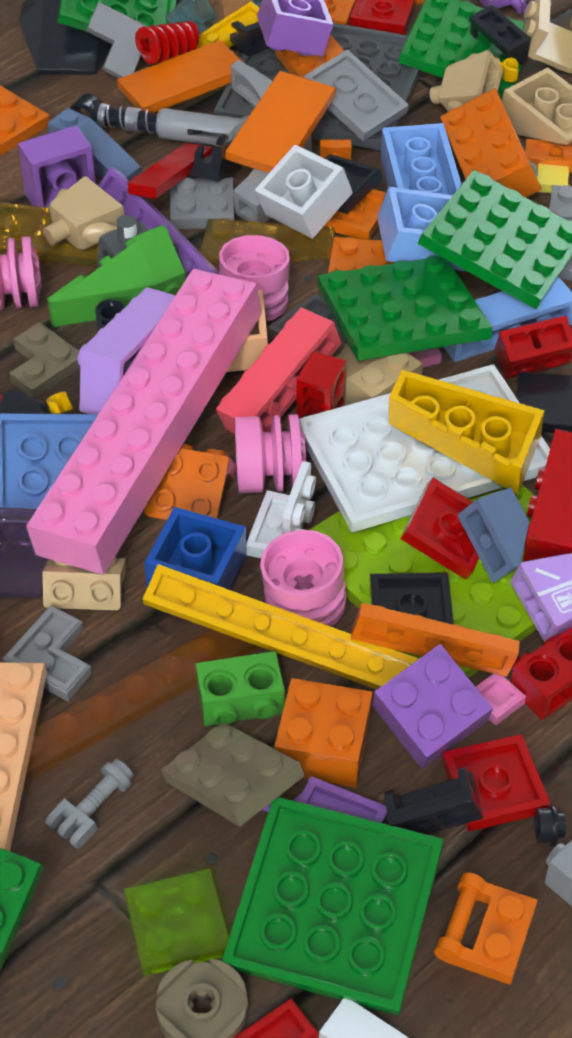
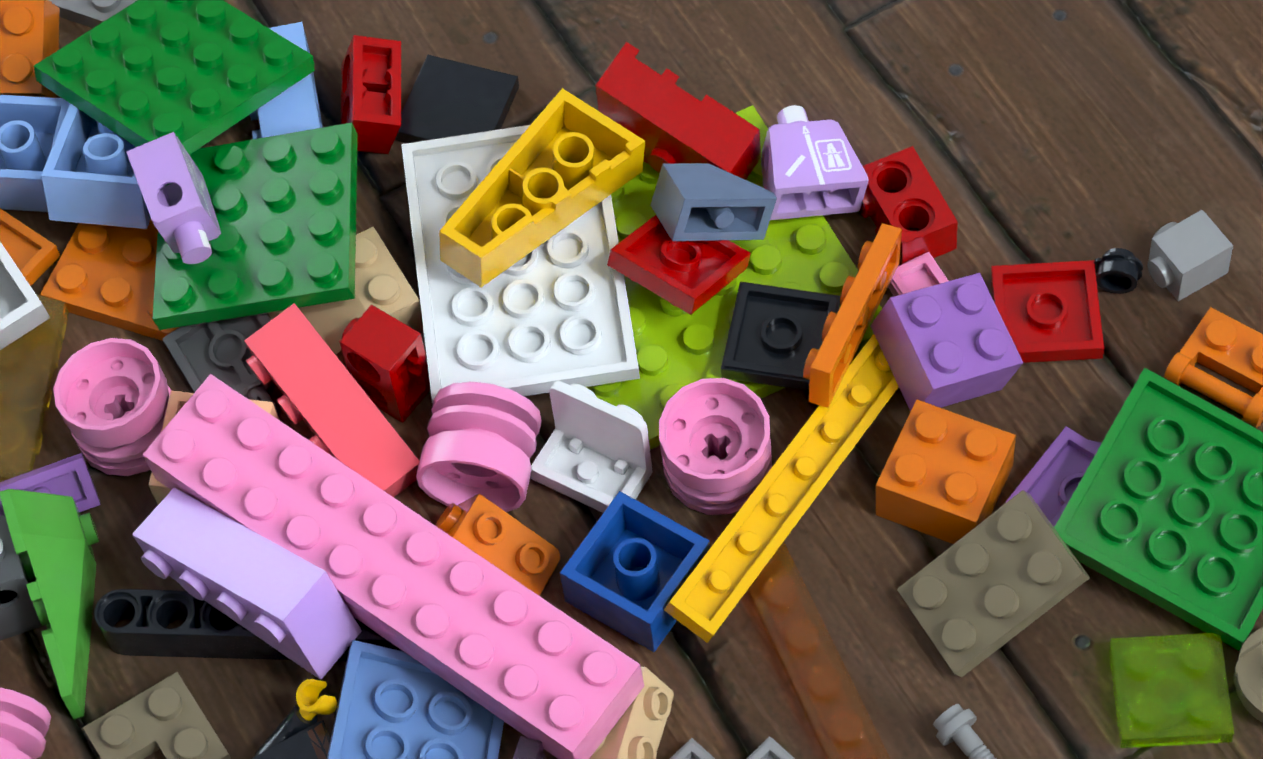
camera: 70 degrees left, 10 degrees up
(239, 682) = (851, 559): bright green brick -> none
(392, 247) = (182, 209): none -> lavender torso
(436, 806) = (1075, 375): black hinge -> none

